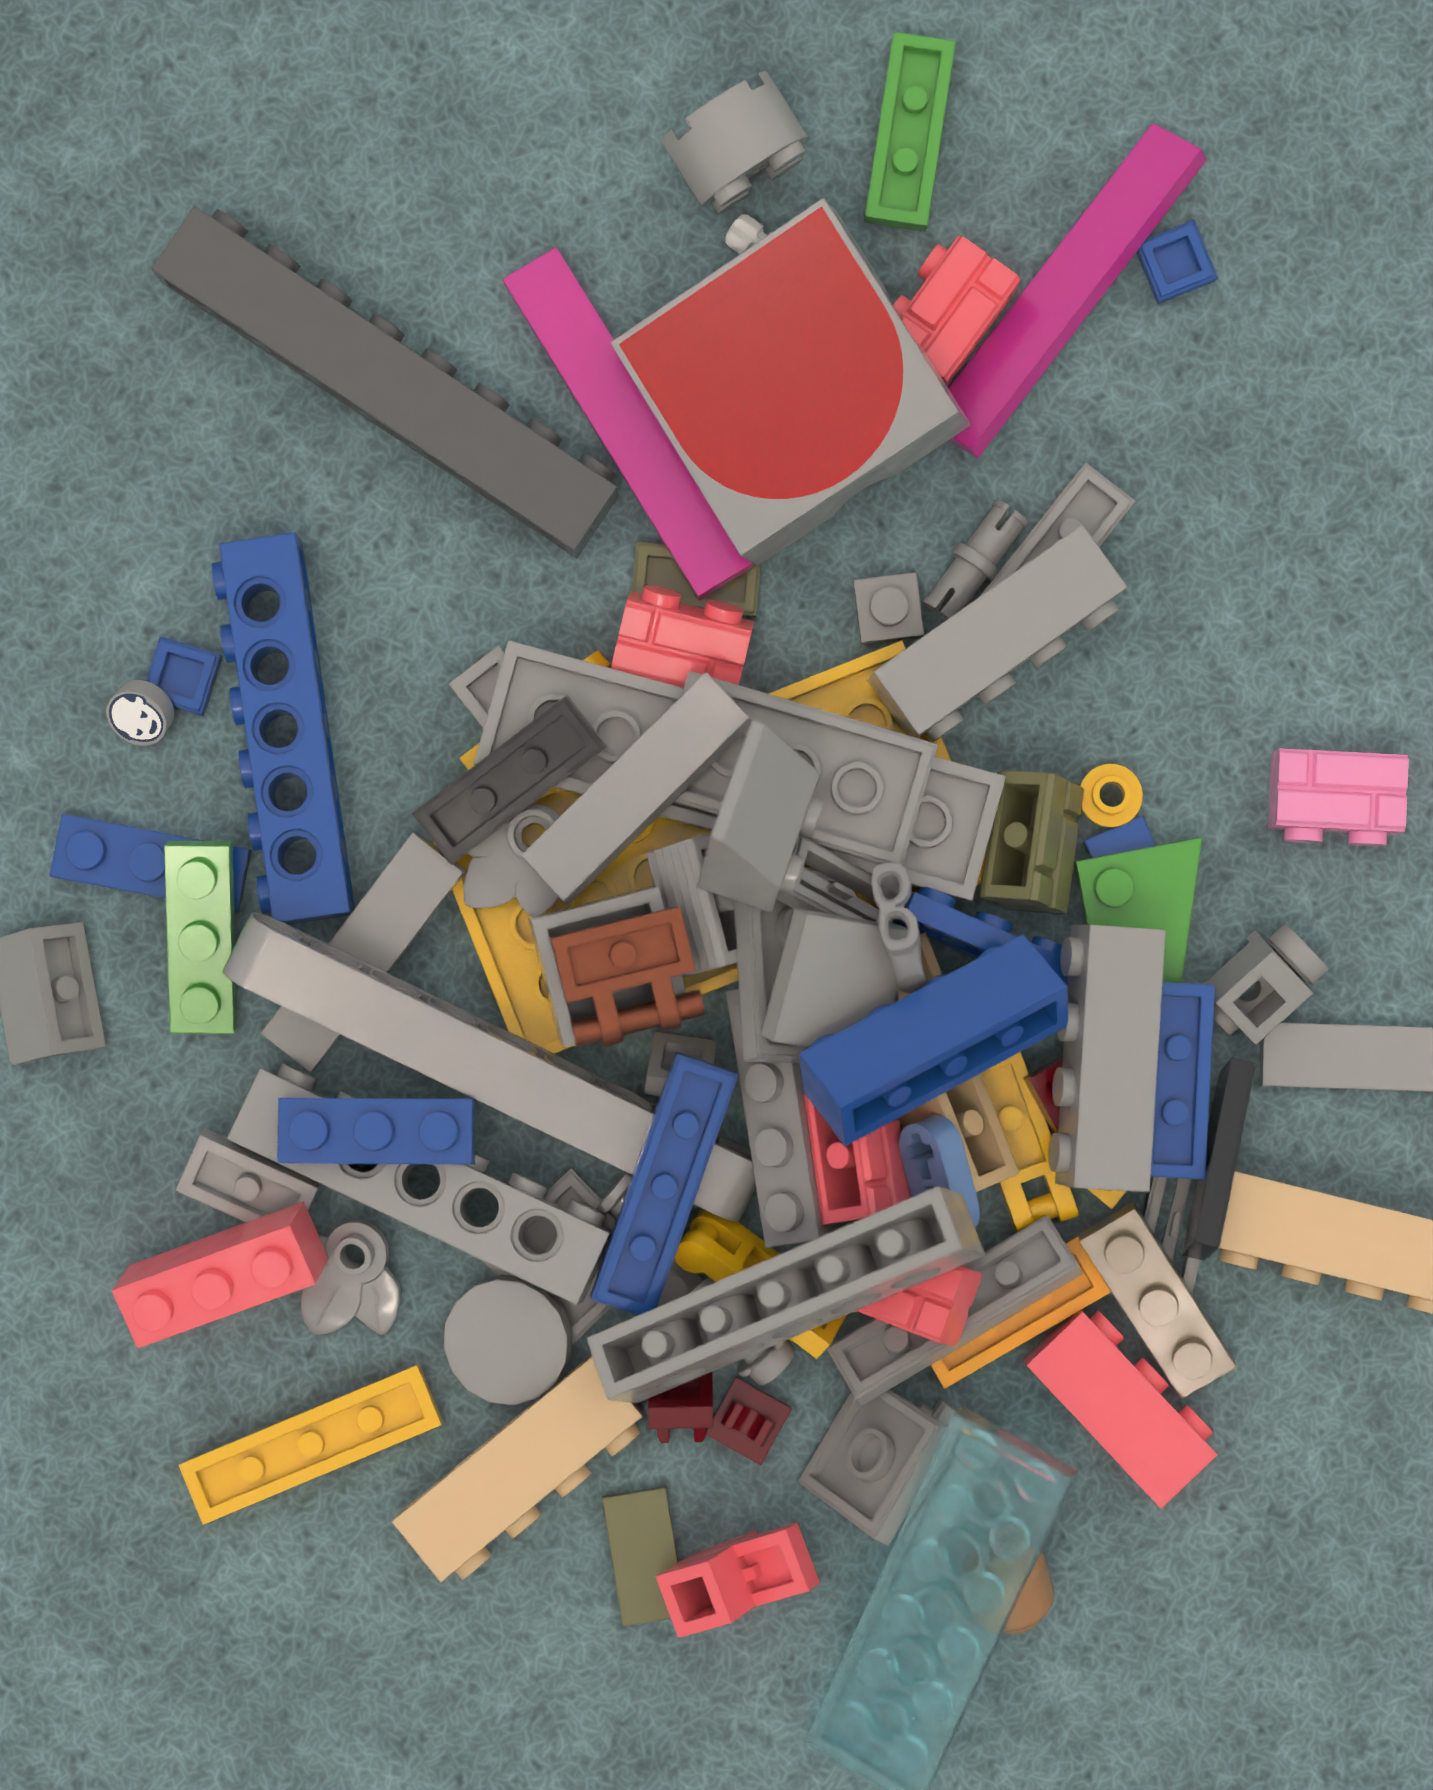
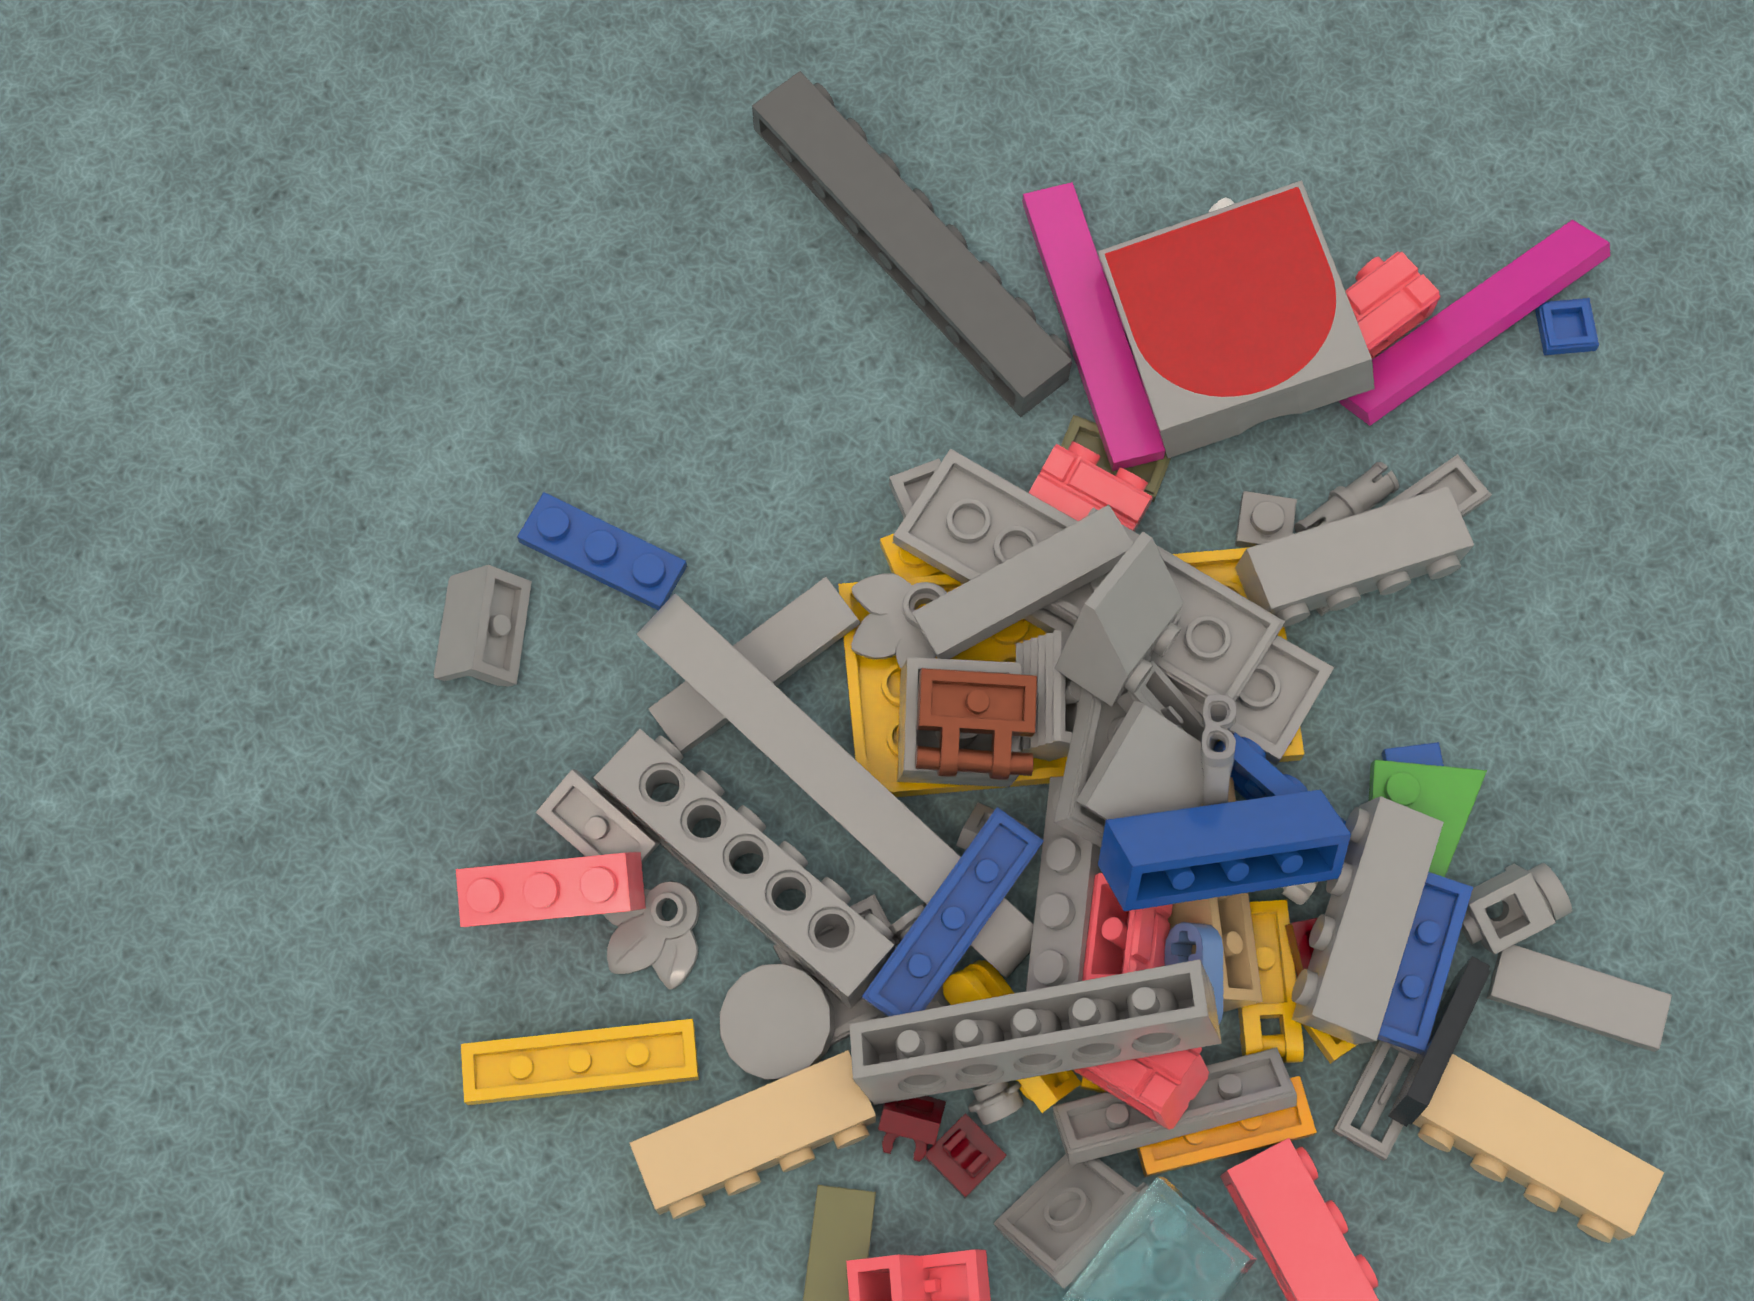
camera: 10 degrees right, 15 degrees down
(140, 712) = (633, 432): tile -> none
(184, 674) = (674, 417): blue tile -> none
(200, 936) = (624, 607): plate -> none
(244, 571) = (757, 348): blue brick -> none
(376, 1131) = (722, 803): blue plate -> none
(509, 780) = (919, 553): black tile -> none
(736, 141) = (1238, 138): light grey brick -> none
(910, 131) = (1375, 174): bright green plate -> none
(1033, 843) = (1342, 733): olive brick -> none
(1102, 814) = (1404, 730): yellow plate -> none
(1157, 1300) = (1355, 1153): plate -> none
(1338, 794) = (1611, 770): bright pink brick -> none

